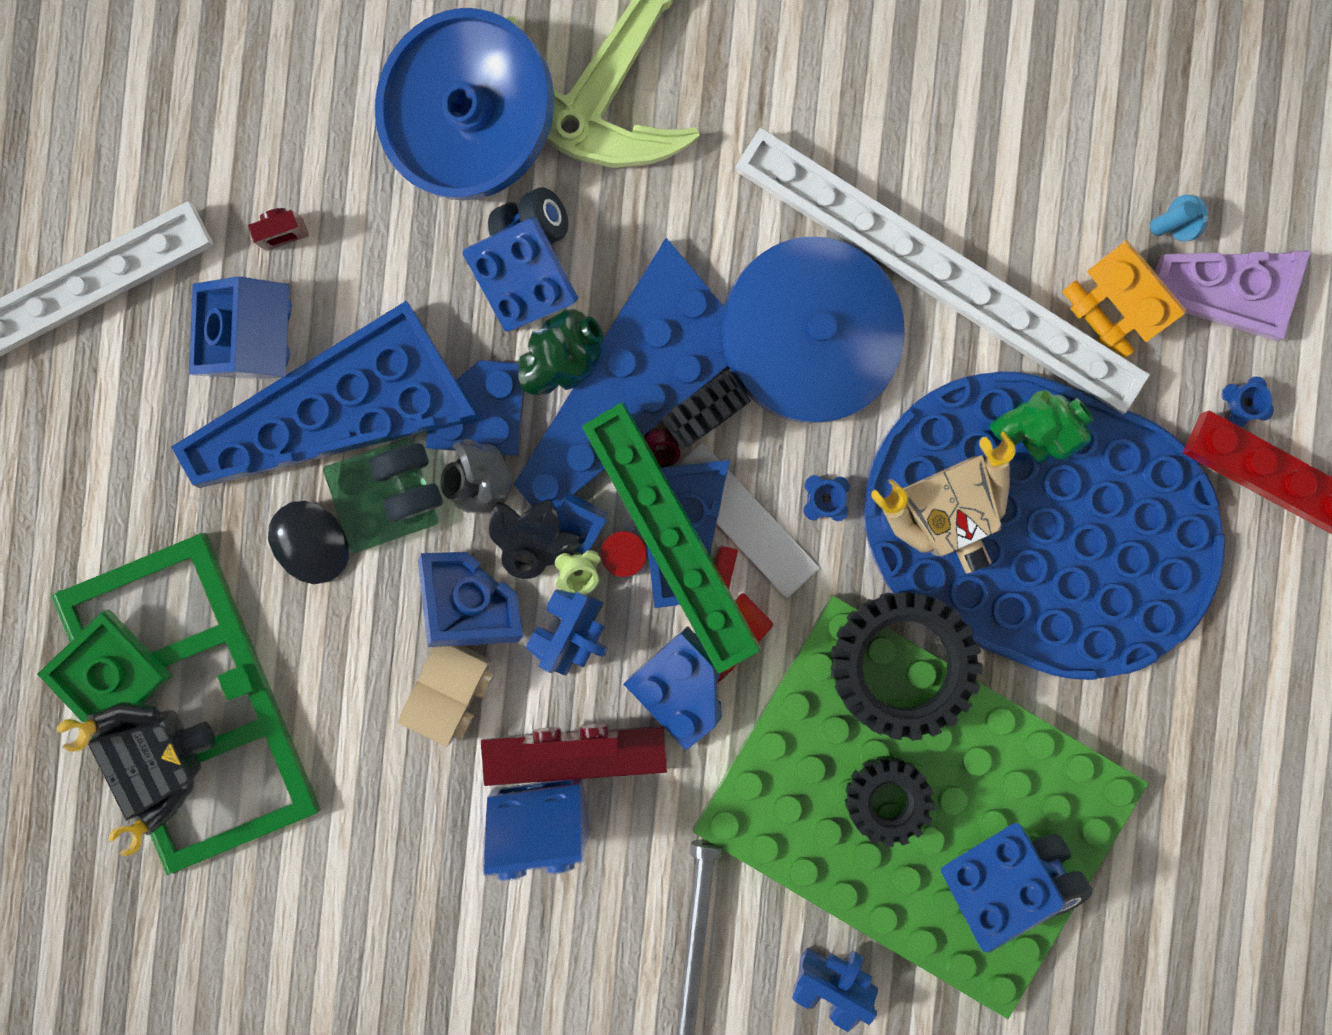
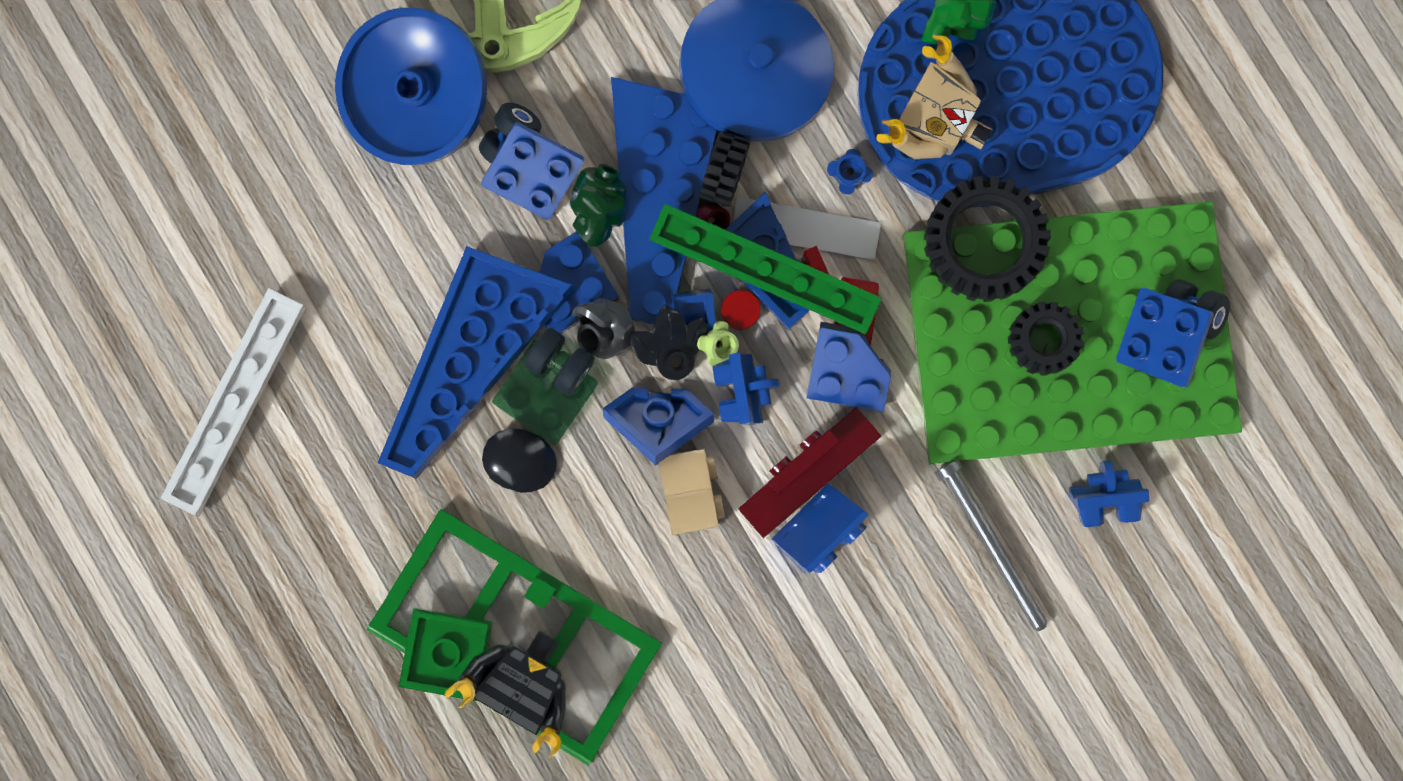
camera: 35 degrees left, 5 degrees down
(239, 328) = (365, 349): blue slope -> none
(277, 228) = (343, 261): dark red plate -> none

